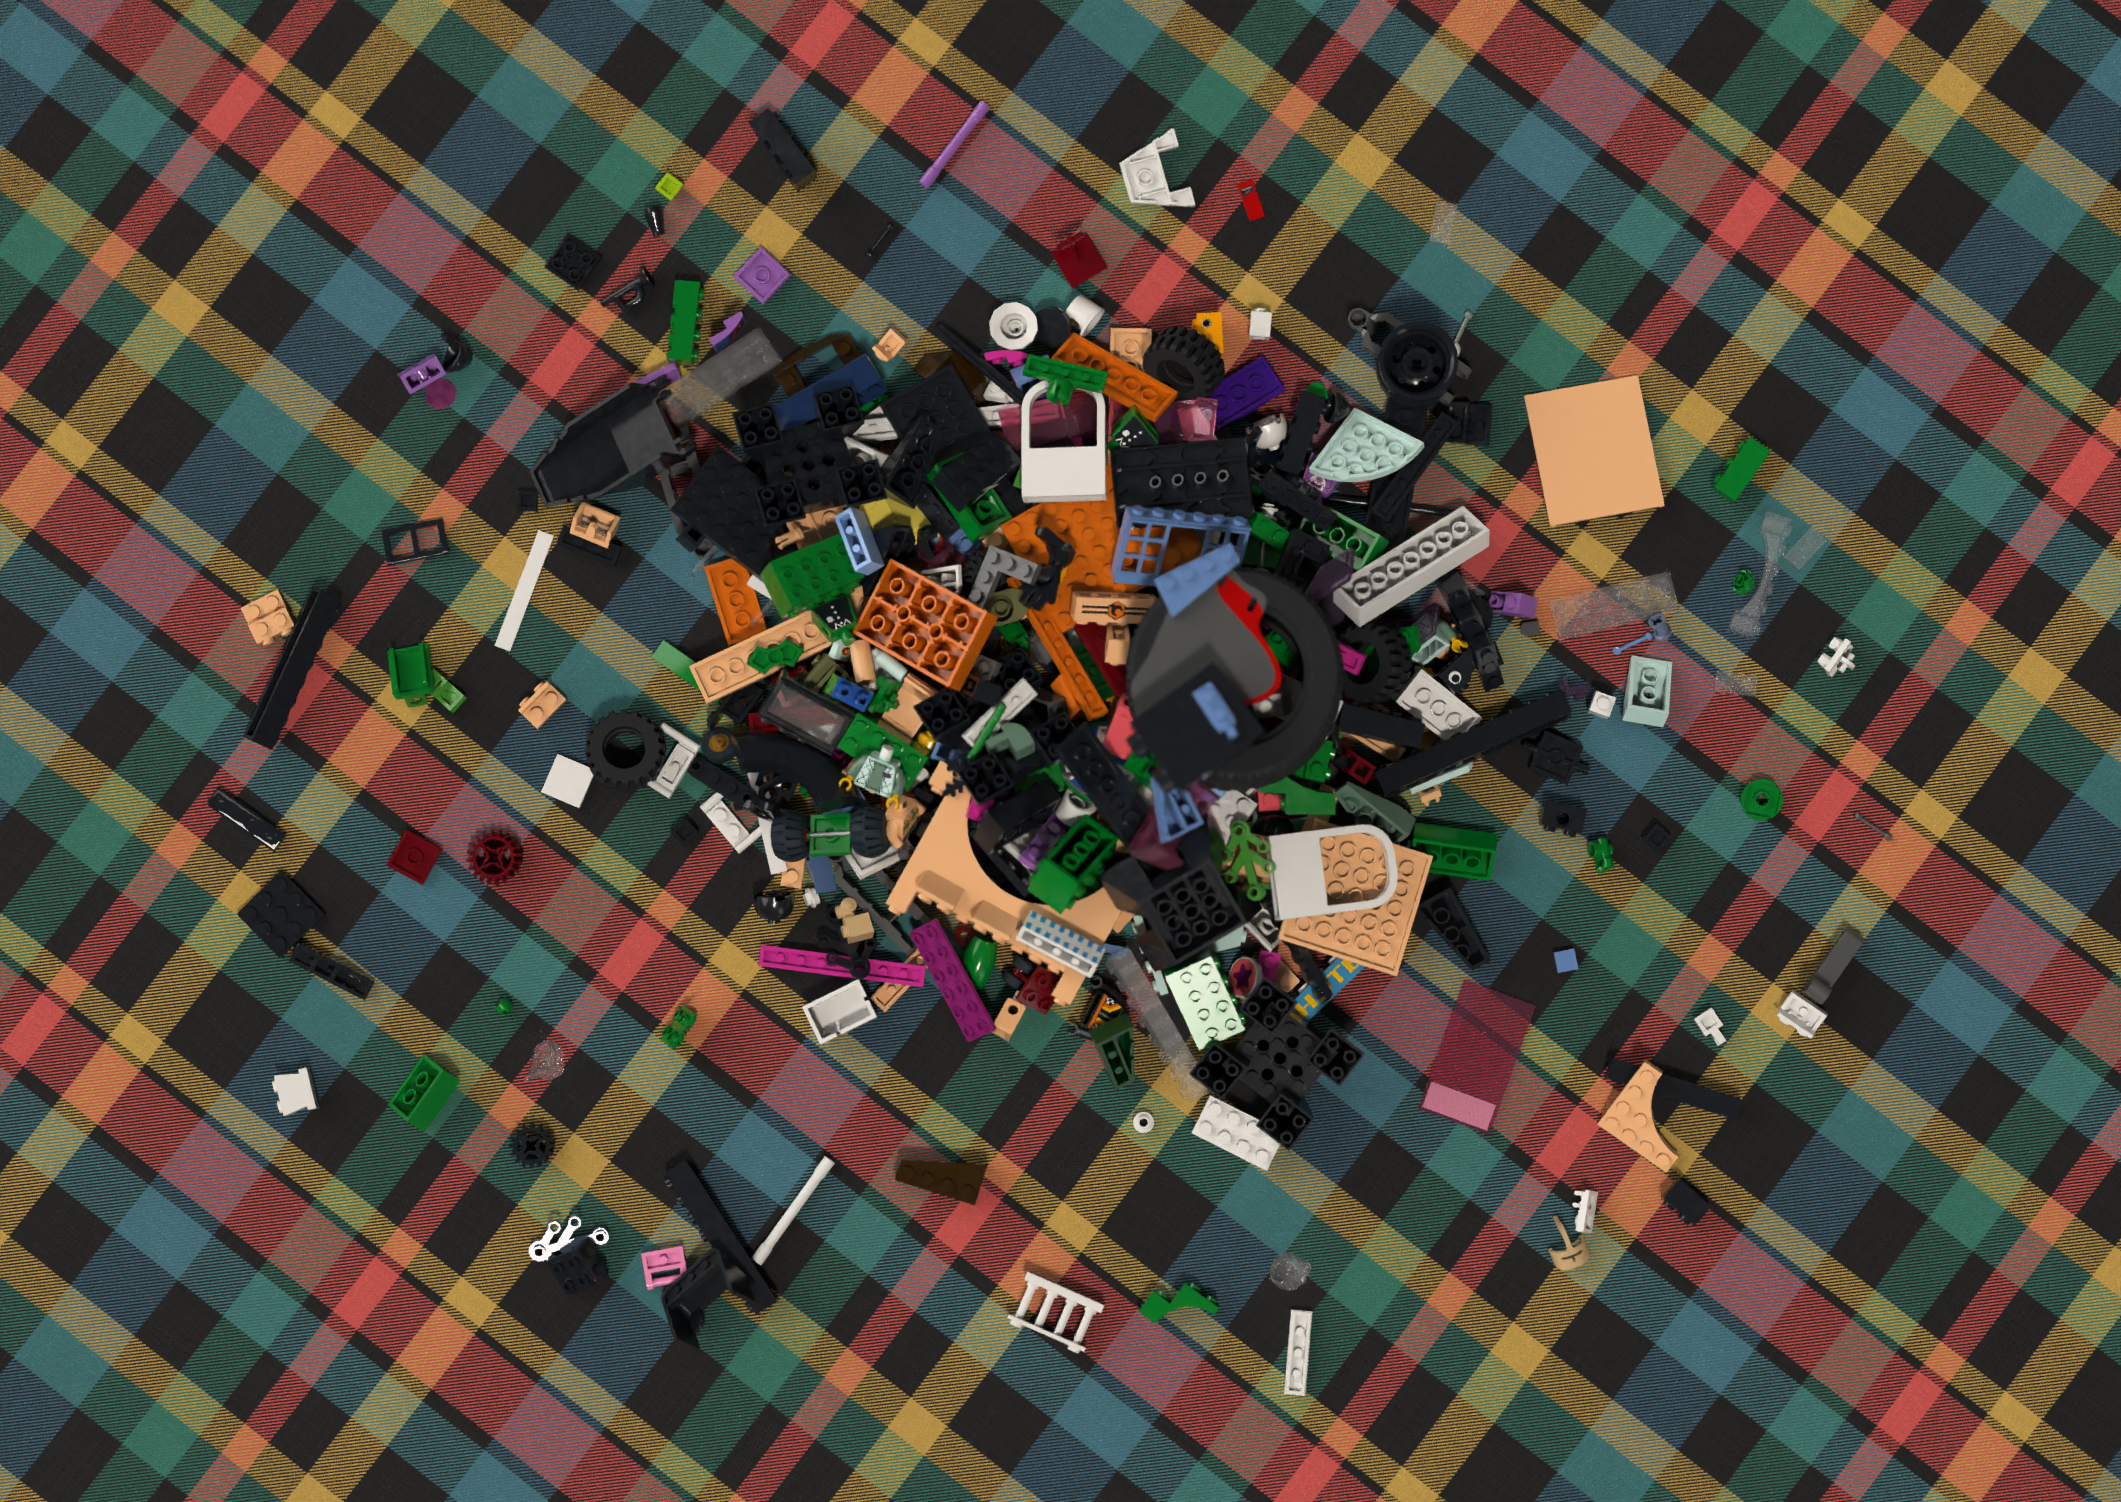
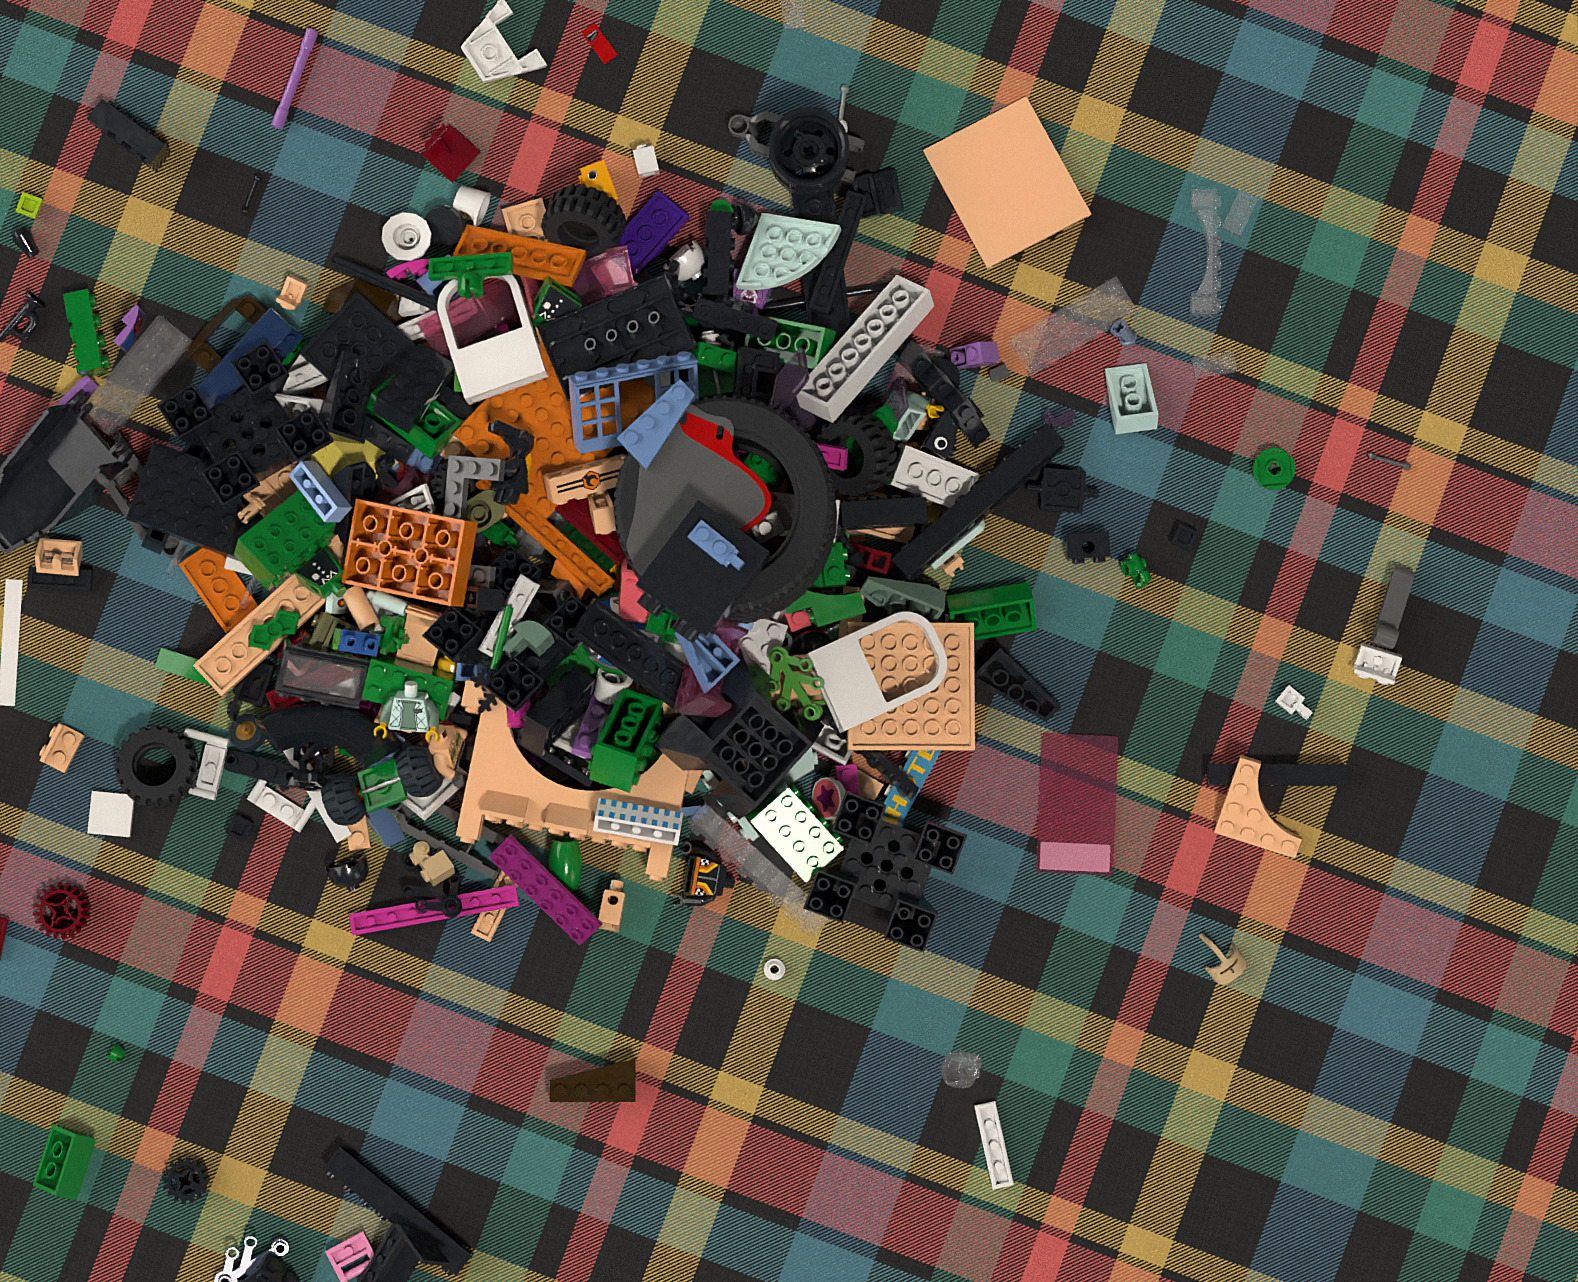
camera: 20 degrees left, 0 degrees up
(546, 1062) = (174, 1094): clear hair -> none
(682, 1019) = (289, 1028): green hinge -> none
(762, 275) = (147, 264): medium lavender tile -> none
(766, 1247) = (446, 1205): white piece -> none
(811, 898) = (383, 853): white plate -> none
(839, 1011) = (445, 955): white piece -> none
(957, 936) = (539, 838): clear red plate -> none
(1034, 990) = (628, 874): dark red plate -> none
(1052, 1292) = (758, 1163): white fence -> none
(1115, 1048) = (724, 907): dark green wedge -> none
(1188, 1296) = (870, 1124): green arch -> none
(1235, 1133) = (866, 951): white brick -> none
(1565, 960) = (1133, 684): medium blue tile -> none
(1586, 1214) = (1230, 924): white plate -> none
(1601, 705) = (1091, 425): white brick -> none
(1617, 650) = (1089, 368): medium blue hinge -> none
(1685, 1202) = (1323, 881): black brick -> none
(1740, 469) = (1153, 156): green brick -> none
(1744, 582) = (1191, 264): green plate -> none
(1841, 656) = (1308, 308): white hips -> none

